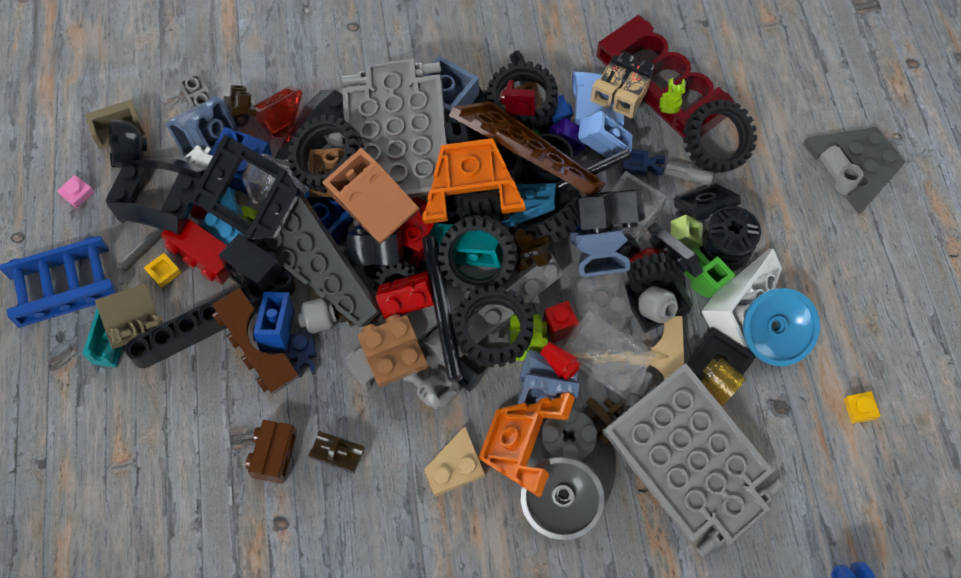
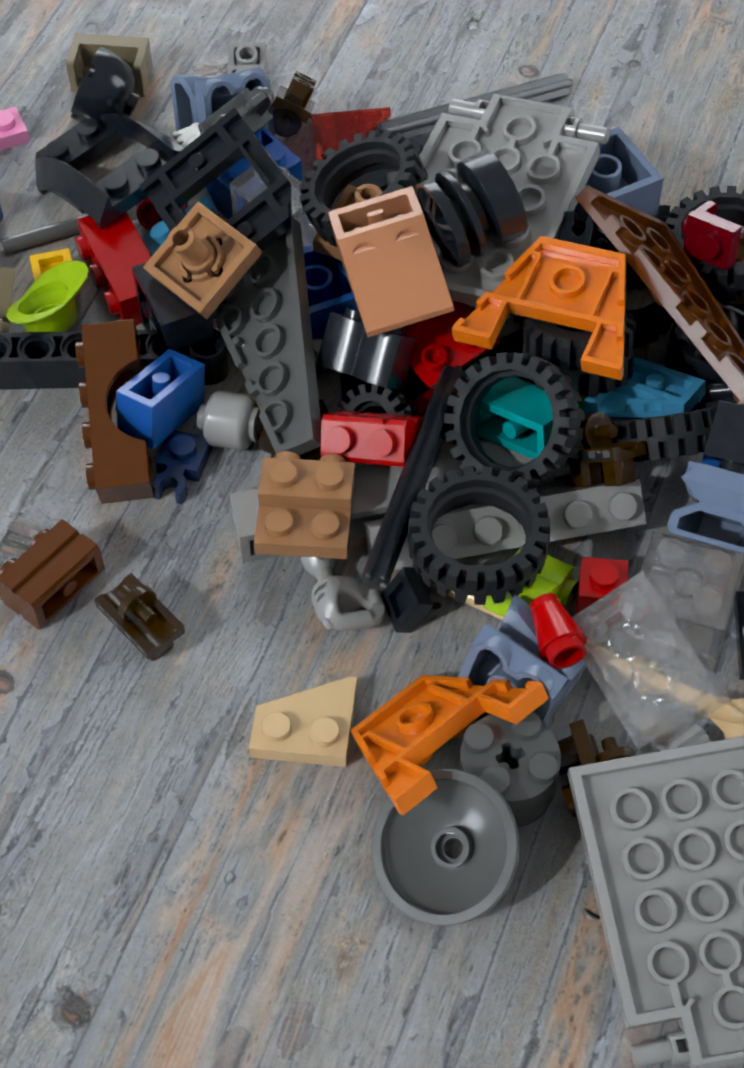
camera: 30 degrees right, 10 degrees down
(173, 290) = (51, 299): none -> lime piece
(220, 125) = (251, 106): none -> dark grey hinge
(251, 234) = (192, 251): none -> medium nougat plate
(327, 81) = (424, 121): none -> axle
(400, 146) = (473, 207): none -> black wheel

